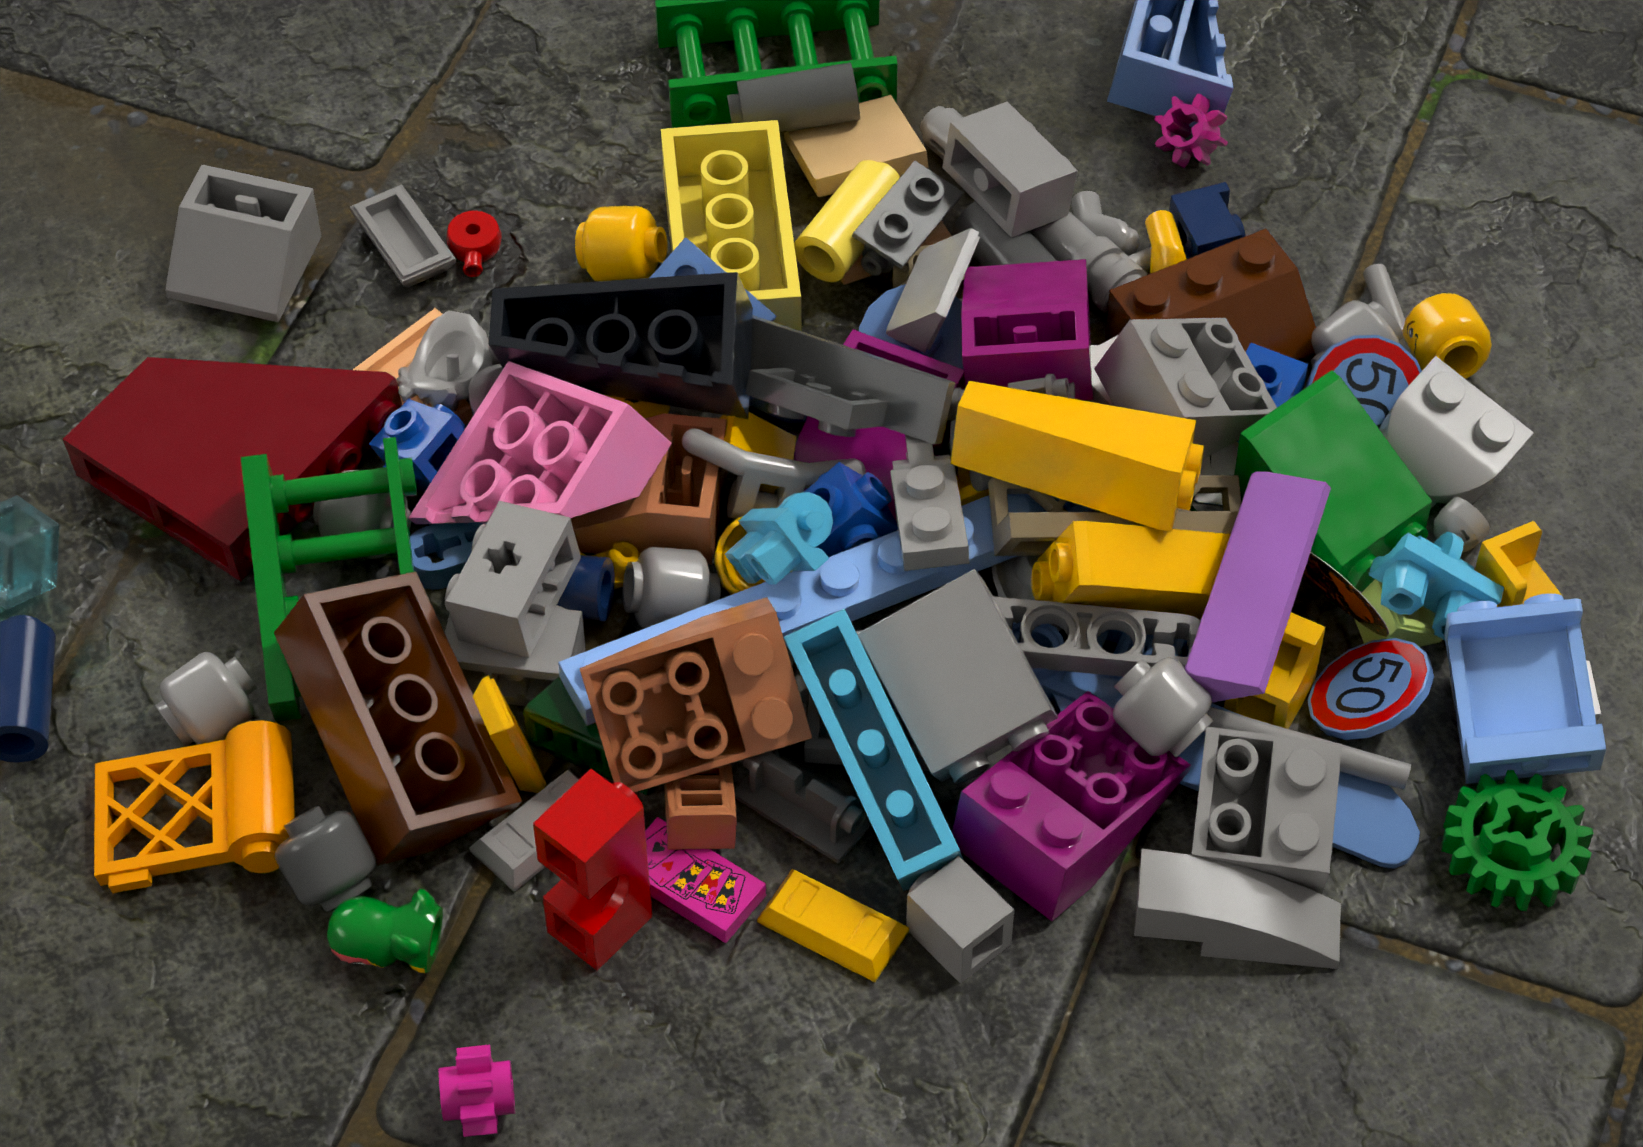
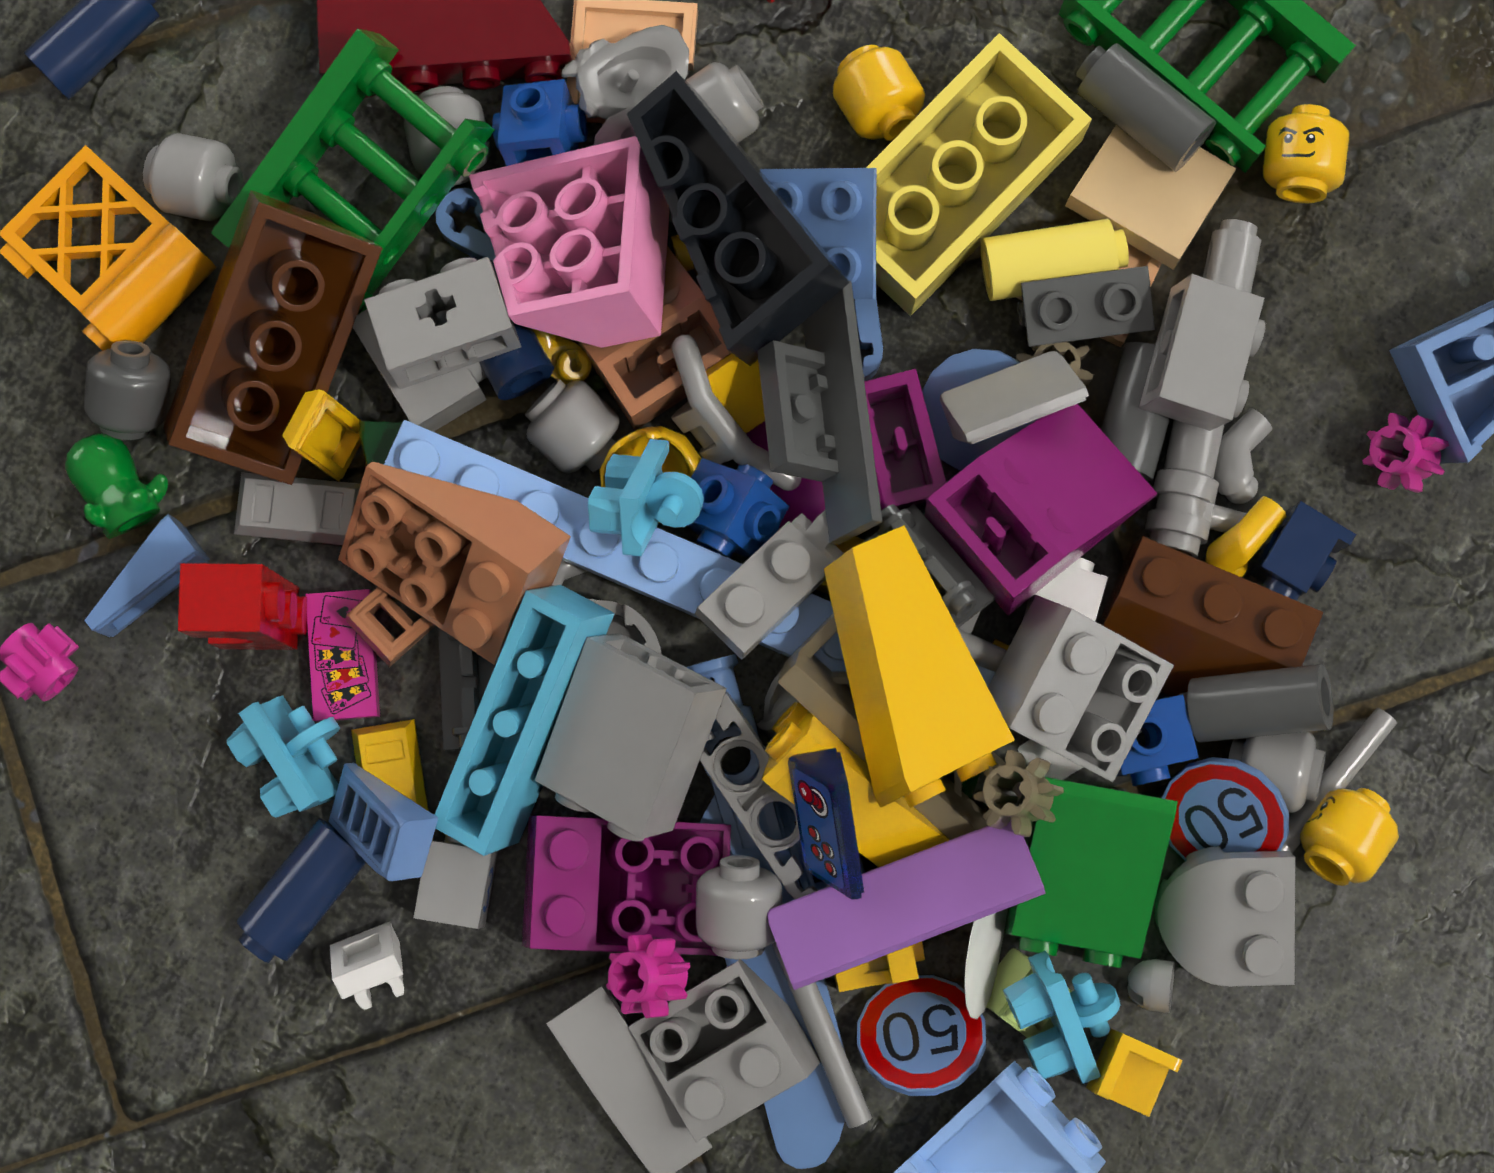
camera: 50 degrees right, 30 degrees up
(490, 943) = (146, 577): none -> medium blue slope
(767, 968) = (294, 750): none -> medium azure hips
(860, 1036) = (299, 893): none -> dark blue brick
(901, 894) = (412, 827): none -> medium blue slope
(925, 49) = (1305, 154): none -> yellow head
(964, 1030) = (367, 962): none -> white tile
(1146, 789) = (648, 976): none -> dark pink gear
(1153, 564) = (826, 820): none -> slope
(1256, 437) = (1034, 786): none -> dark tan gear
(1302, 298) = (1260, 703): none -> dark grey brick

